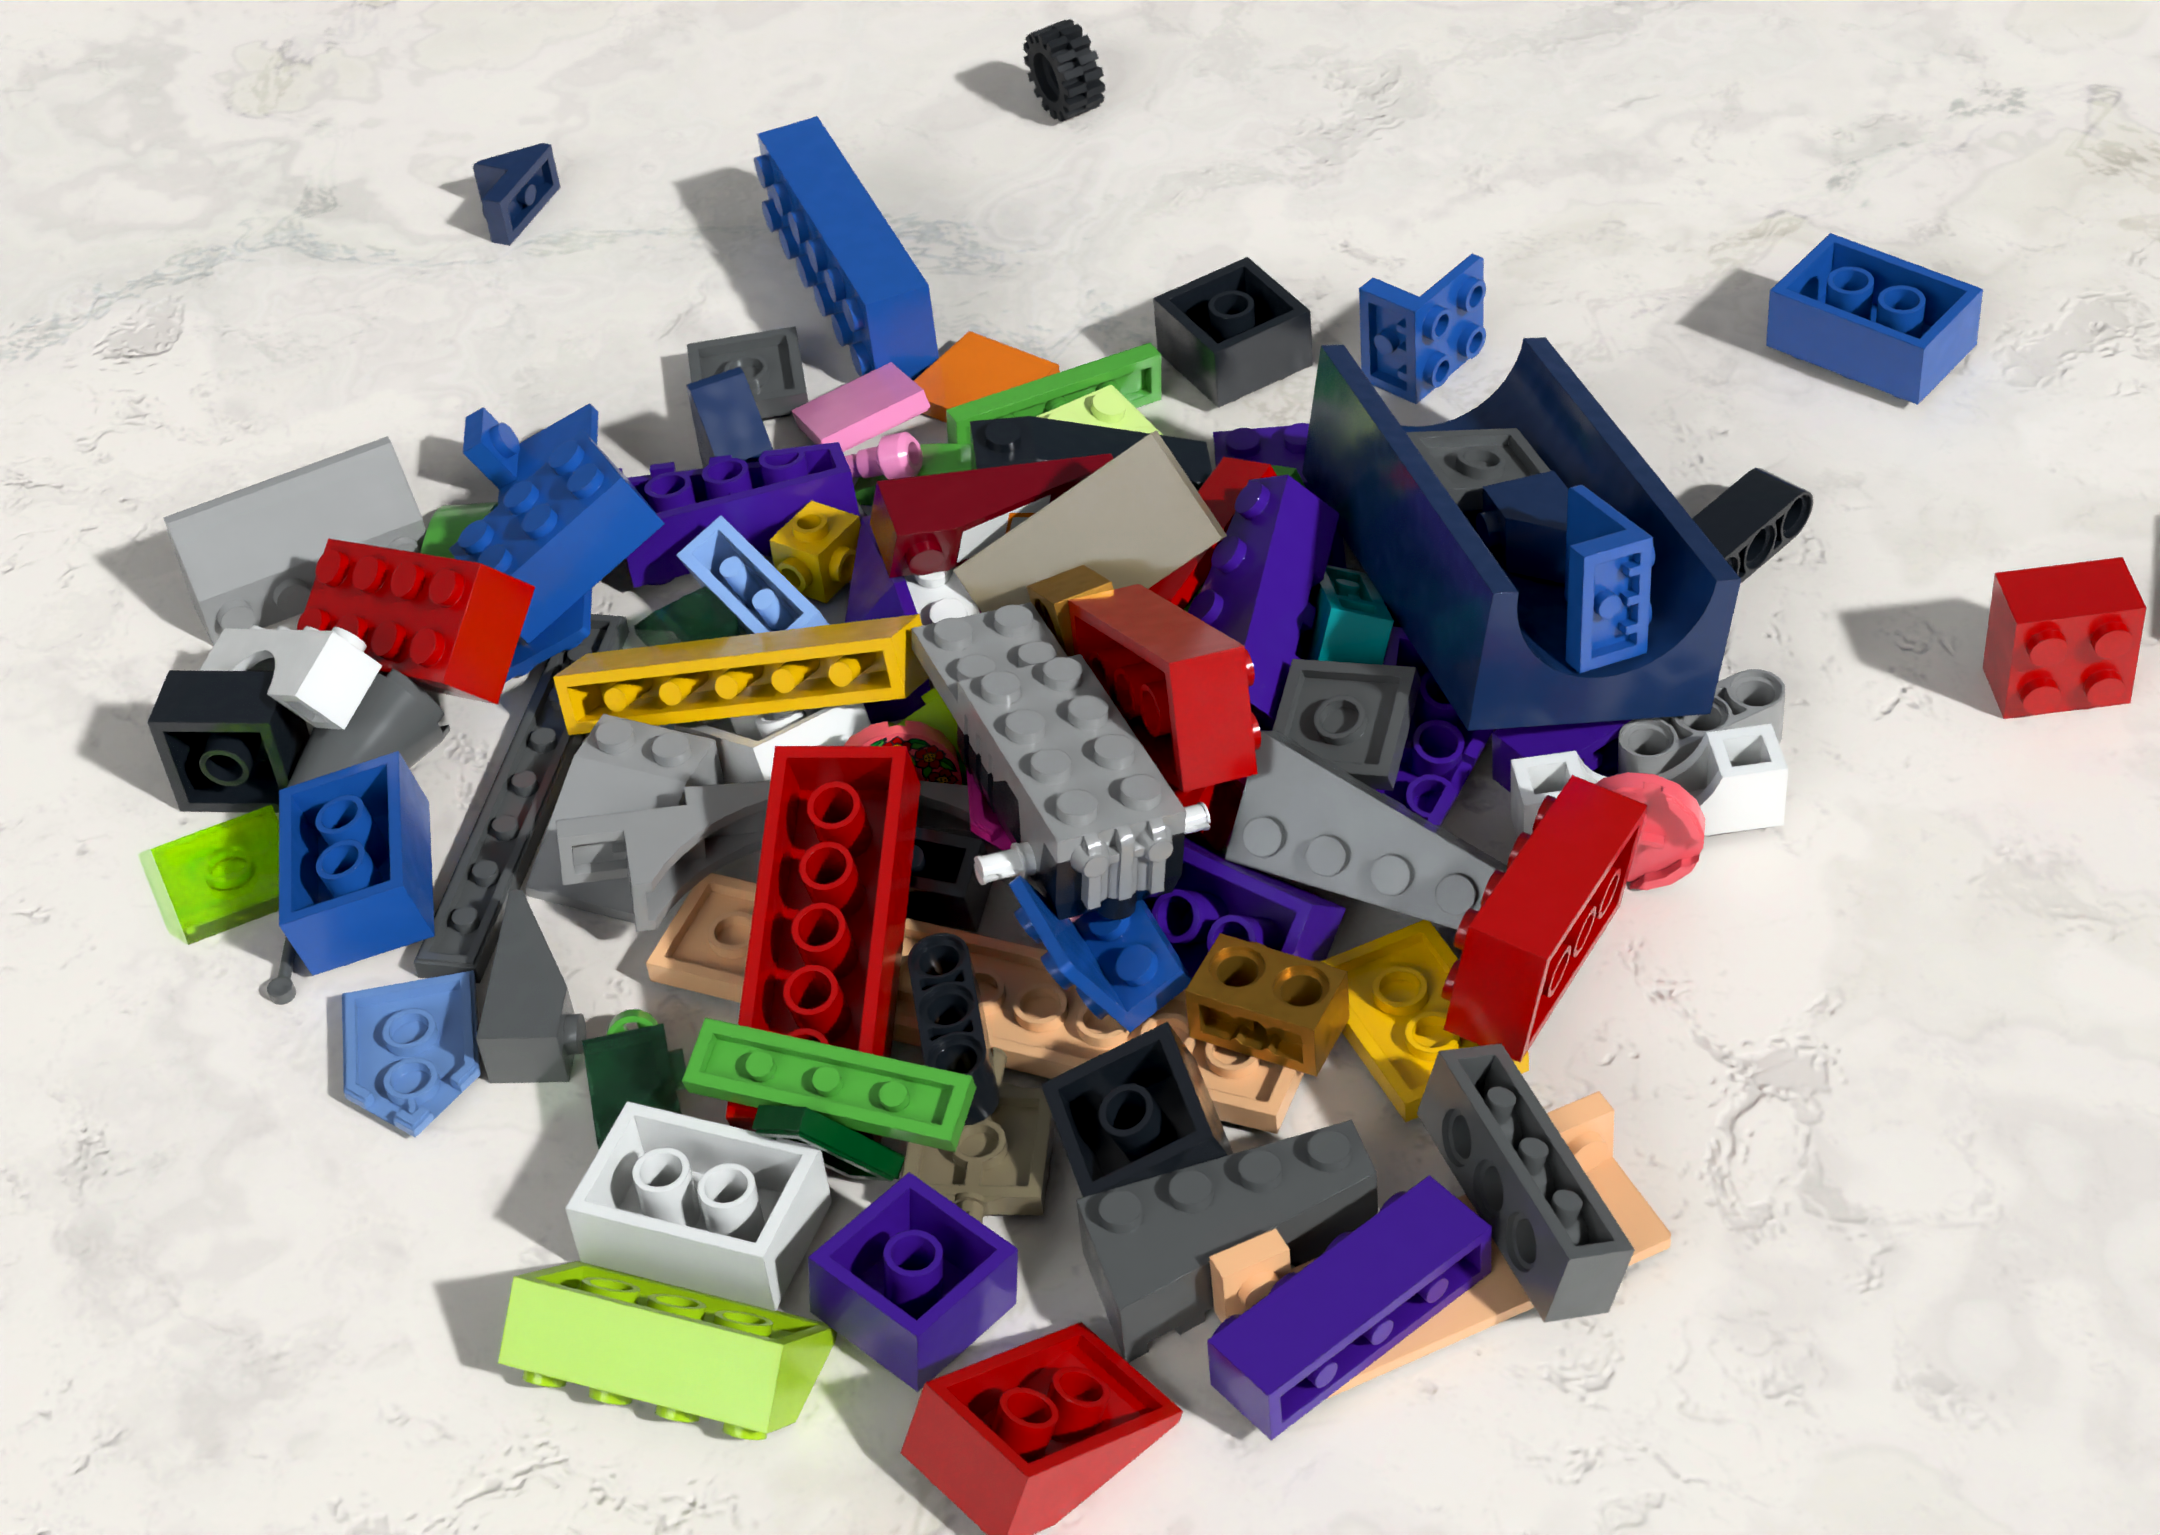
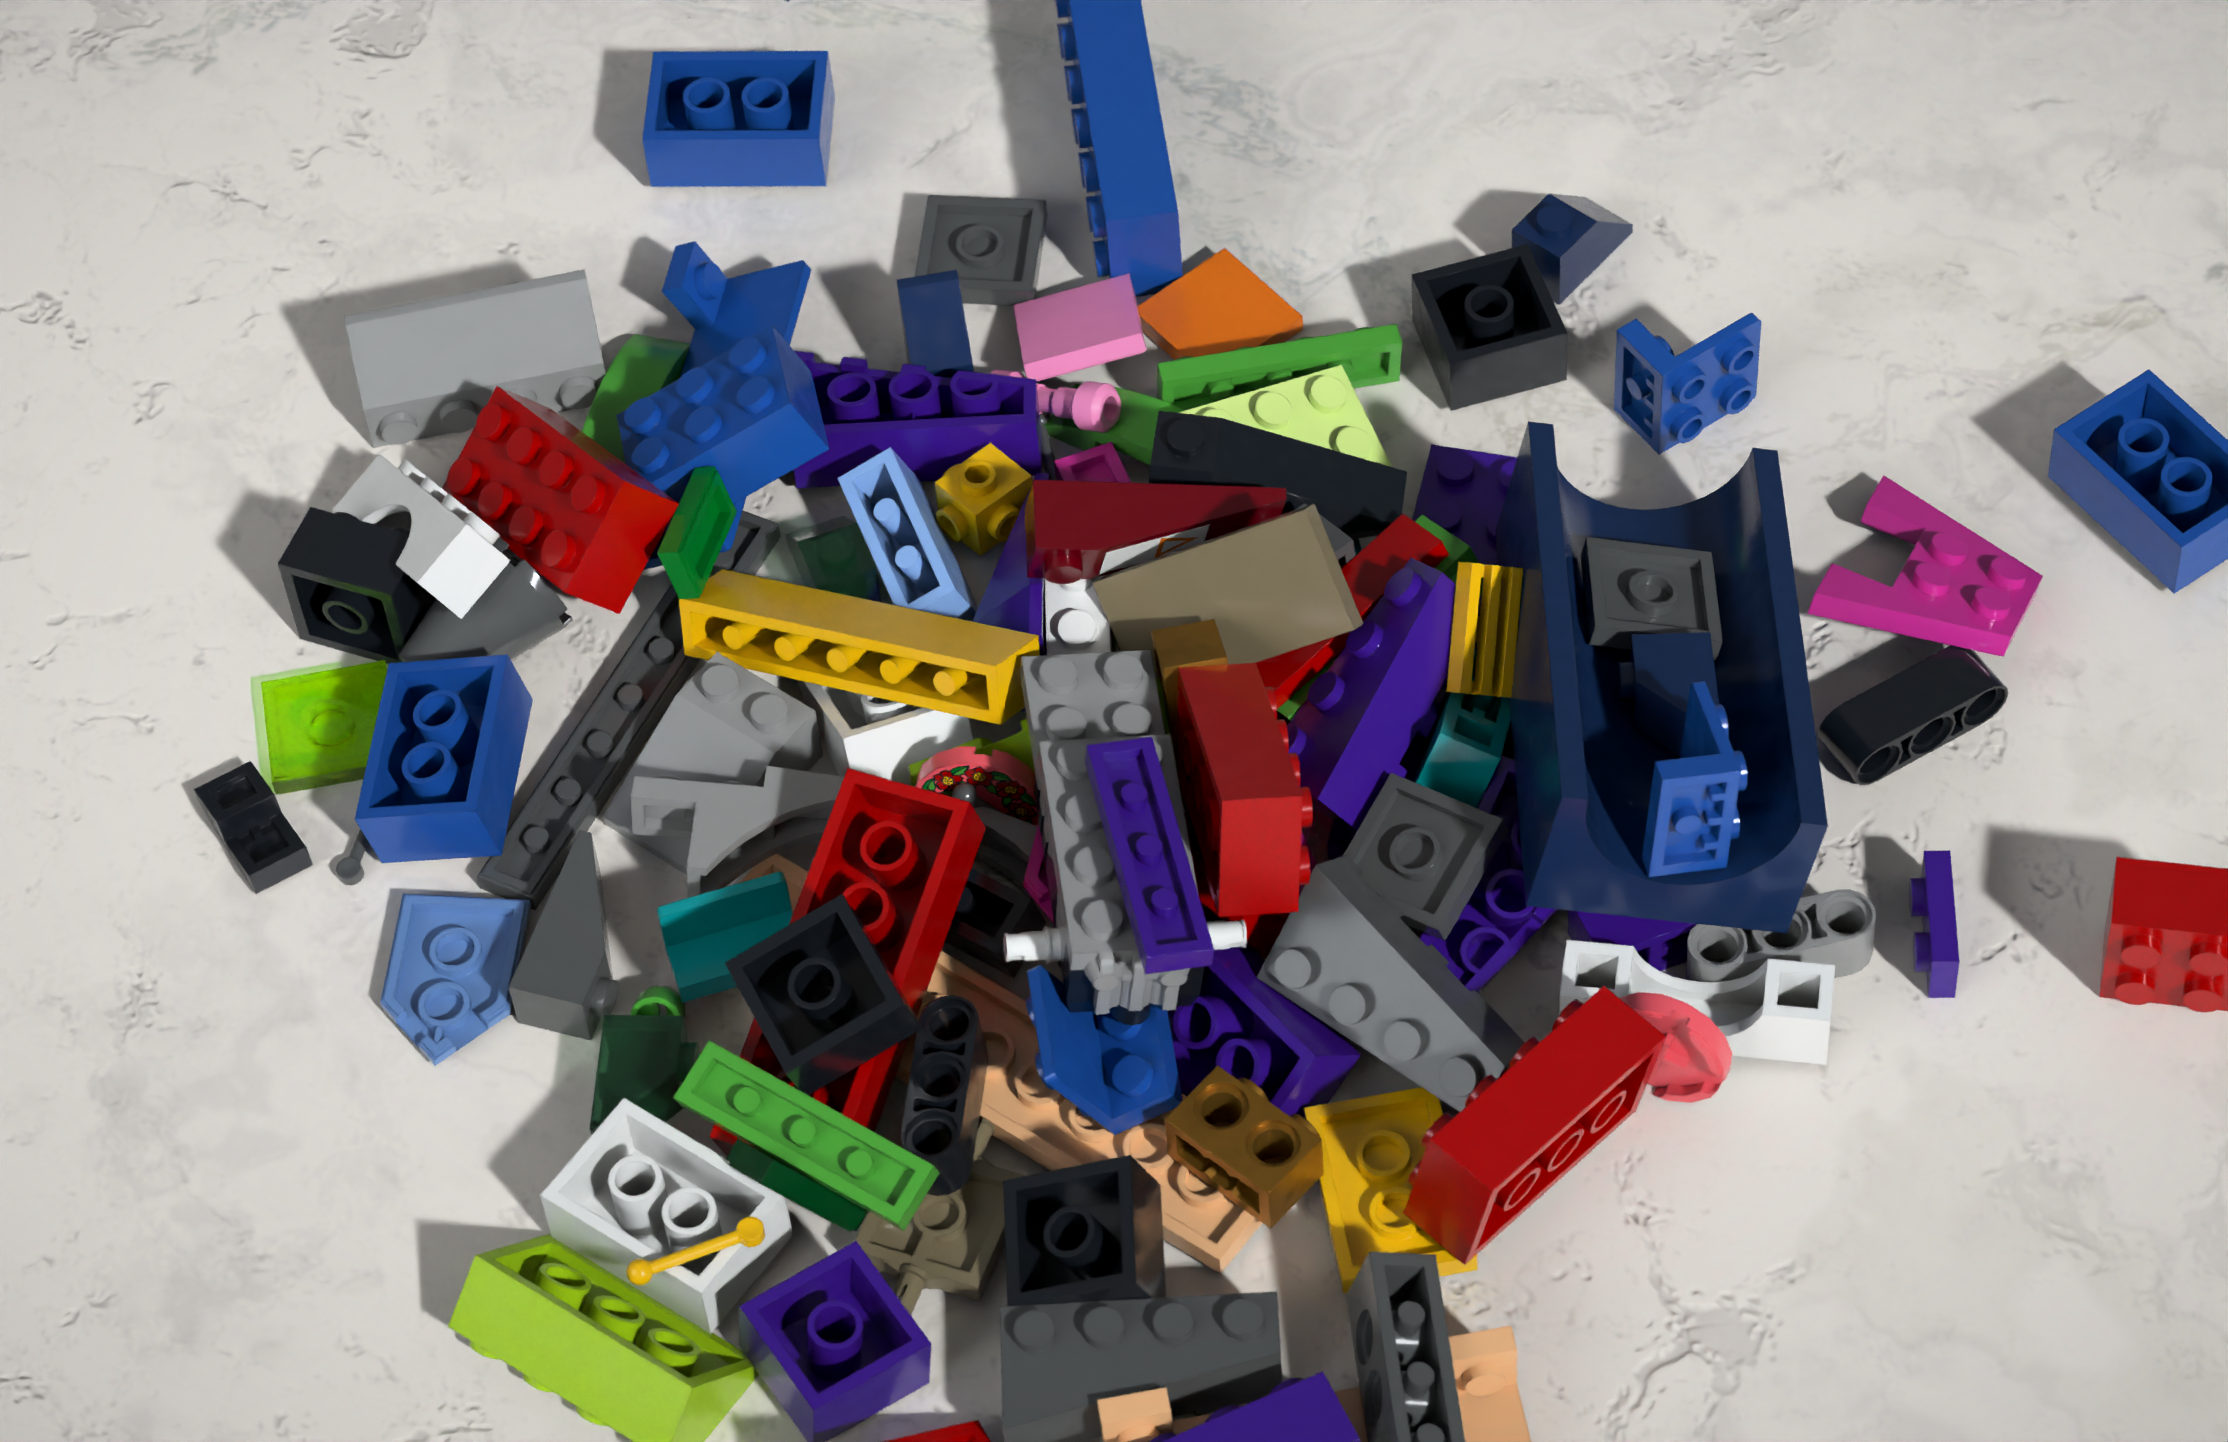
camera: 15 degrees right, 10 degrees up
(172, 974) = (253, 827): none -> black slope
(494, 322) = (739, 118): none -> blue brick
(557, 615) = (697, 532): none -> green tile
(685, 942) = (718, 926): none -> teal panel
(796, 1190) = (748, 1233): none -> yellow hinge
(814, 942) = (823, 995): none -> black brick
(1107, 739) = (1149, 855): none -> dark purple plate
(1280, 252) = (1569, 240): none -> dark blue slope
(1338, 523) = (1493, 630): none -> yellow tile
(1712, 428) = (1948, 591): none -> dark pink wing
(1838, 686) = (1937, 946): none -> dark purple plate

